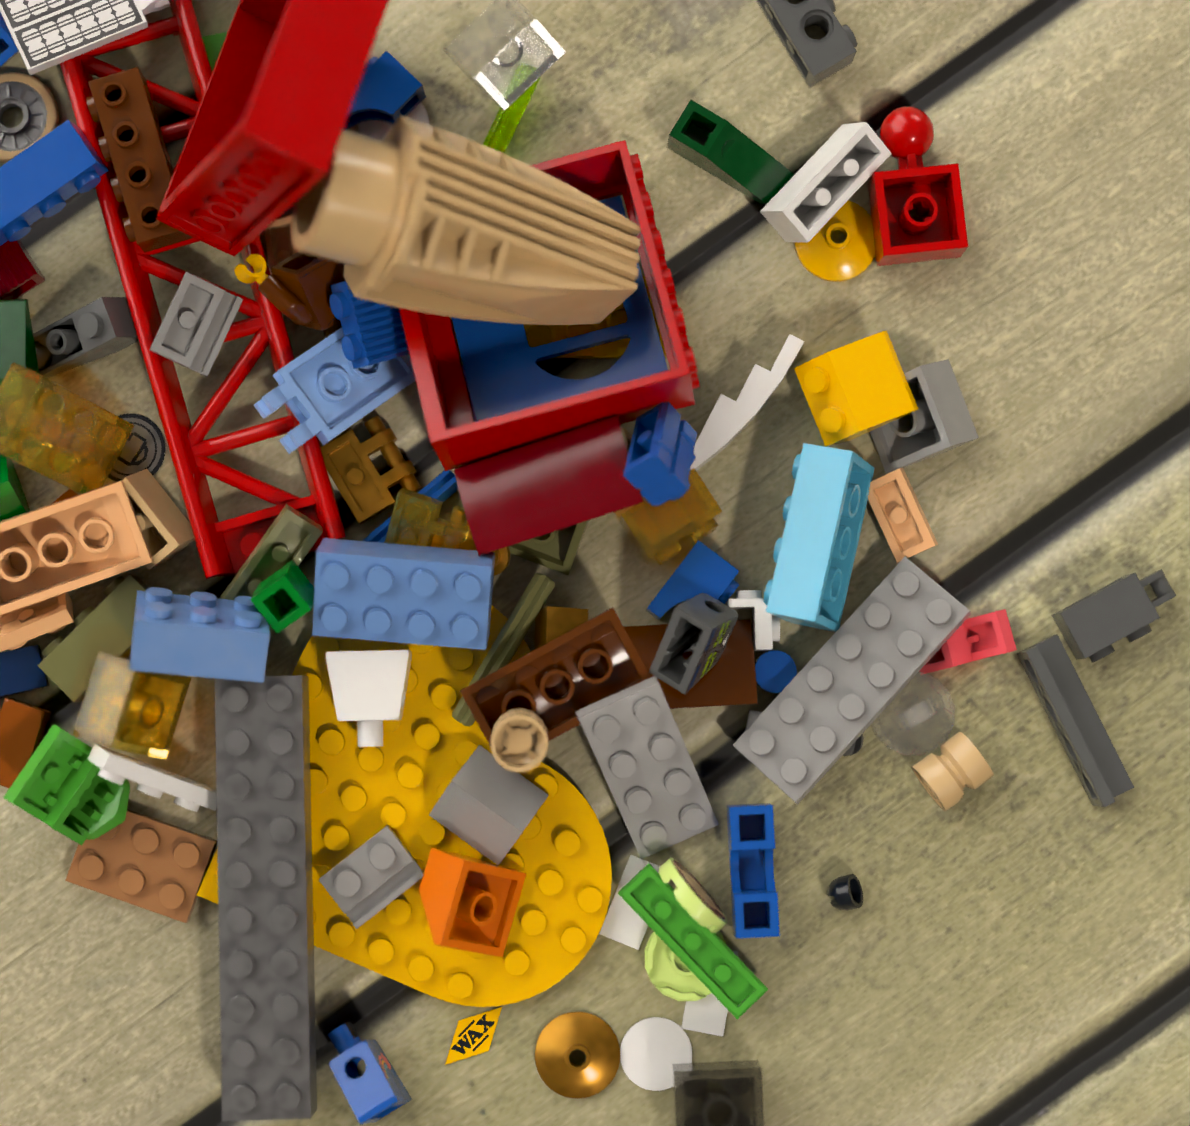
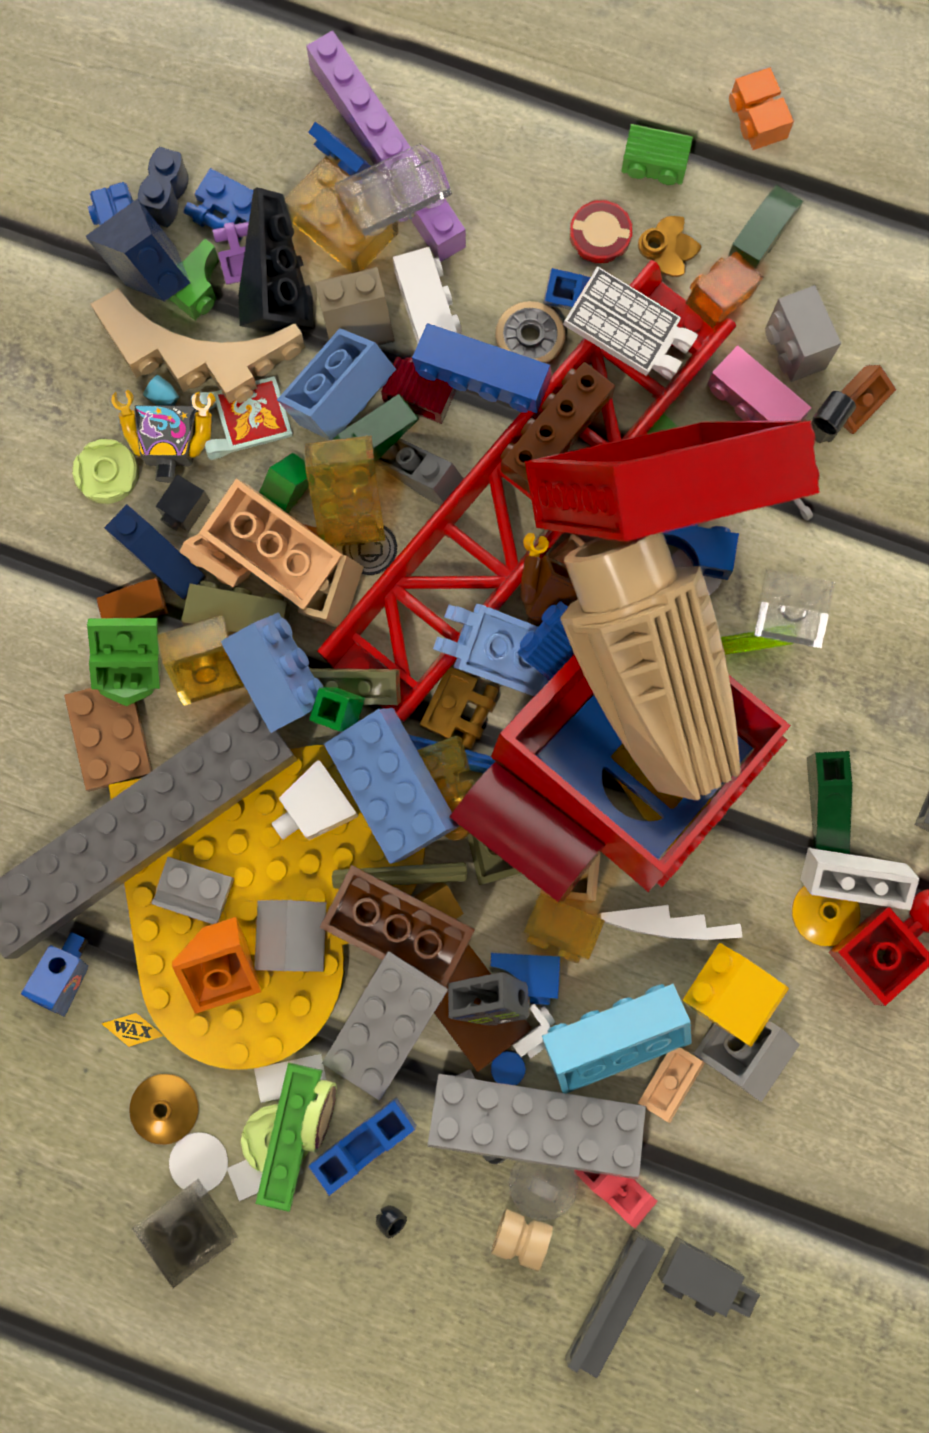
camera: 60 degrees right, 5 degrees down
(152, 779) = (163, 705): white plate -> none
(196, 324) = (476, 533): light grey plate -> none
(519, 740) = (343, 927): tan wheel -> none
(661, 455) = (597, 892): blue brick -> none

